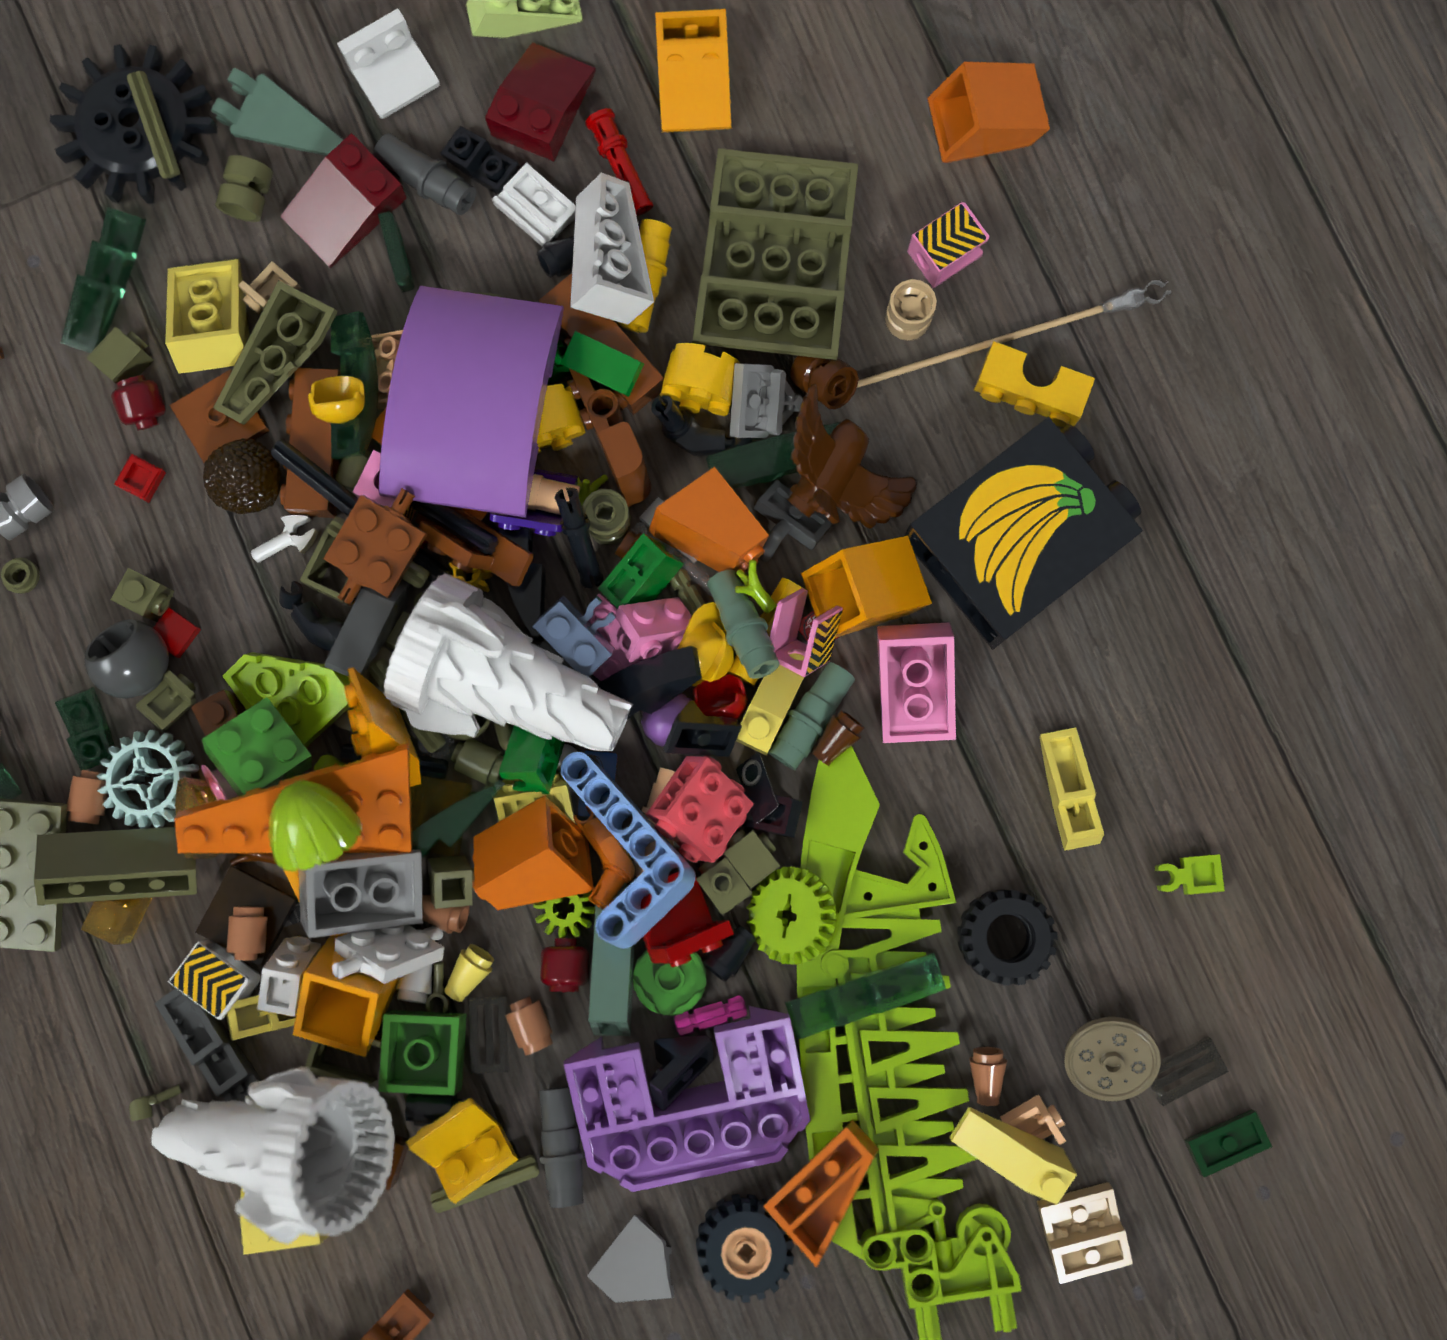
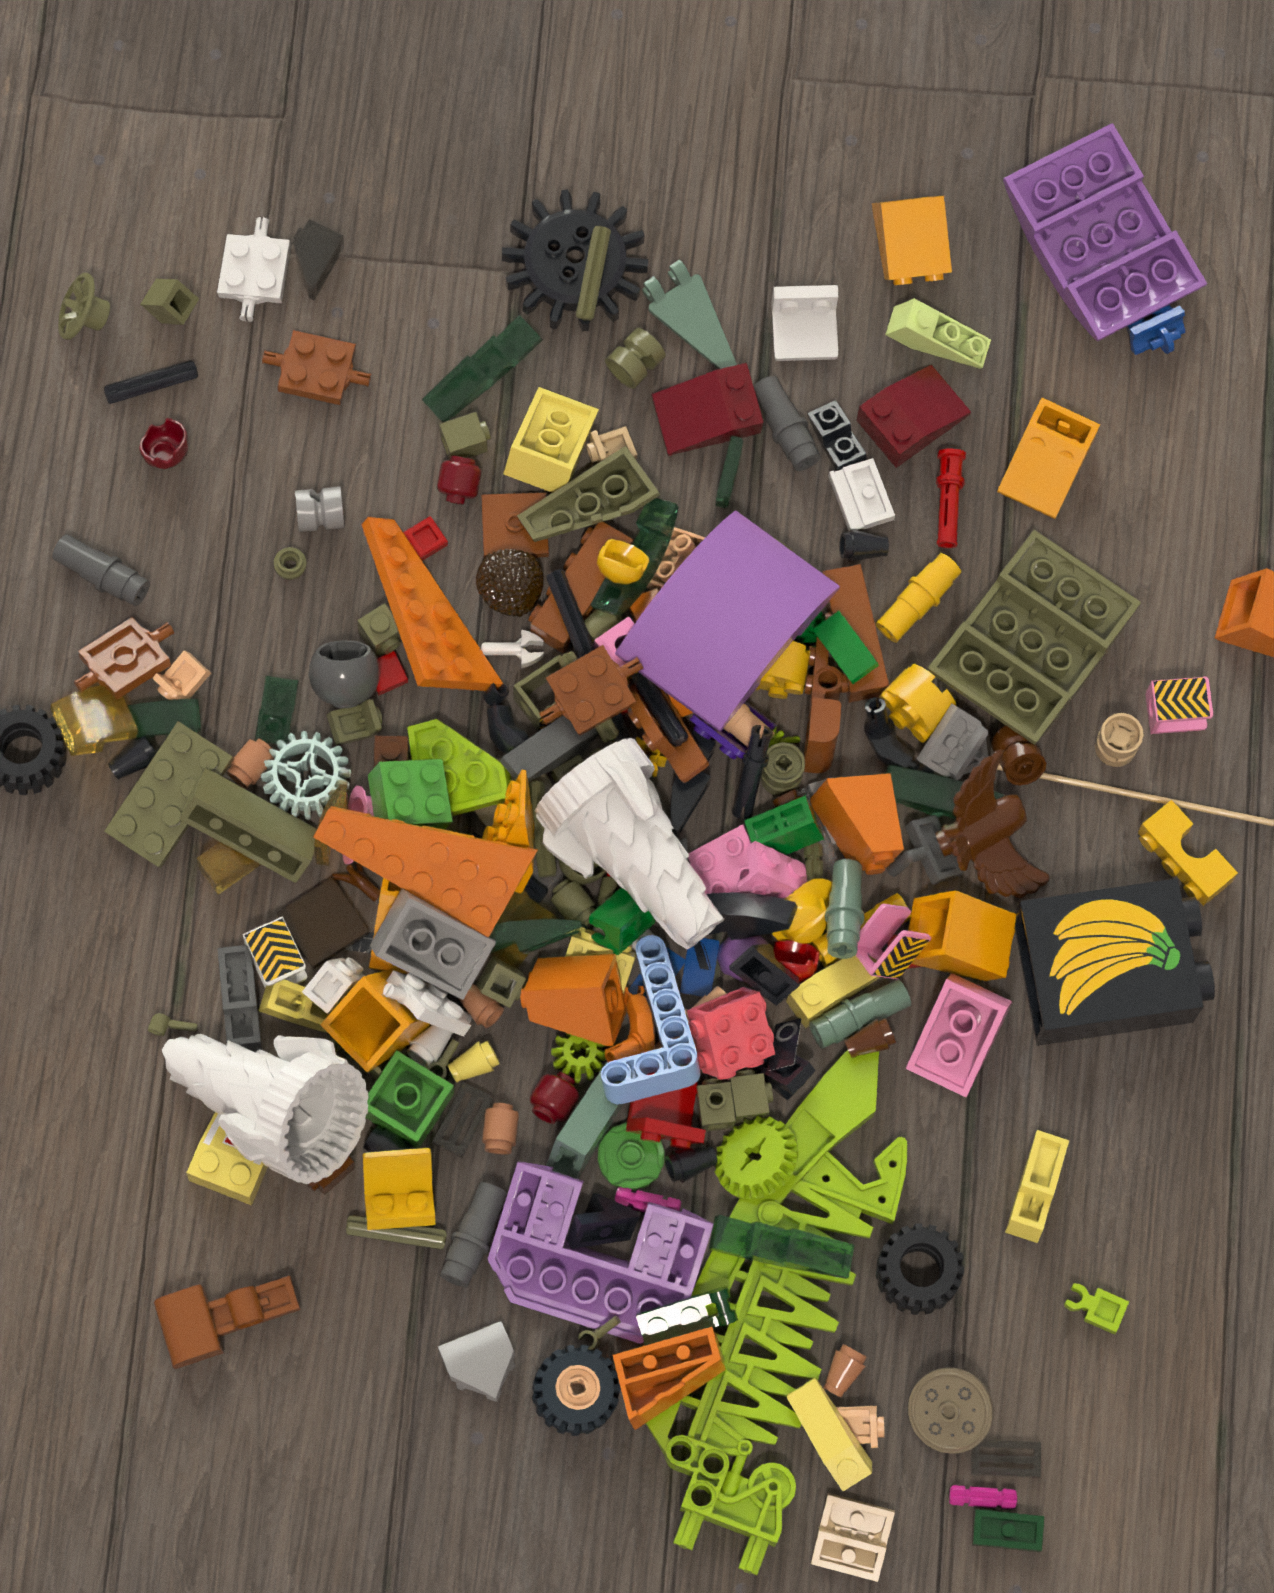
camera: 20 degrees right, 10 degrees down
(191, 569) = (429, 627): none -> orange wing
(247, 932) = (321, 932): nougat brick -> none
(310, 826) = (433, 866): lime hair -> none
(575, 636) = (707, 845): sand blue brick -> none
(608, 253) = (899, 565): white wedge -> none
(635, 755) = (700, 968): none -> blue sticker
(735, 1174) = (599, 1332): none -> olive hand
(754, 588) = (869, 886): lime bar -> none
(811, 1117) = (686, 1316): none -> plate
(1185, 1122) = (983, 1497): none -> dark pink axle

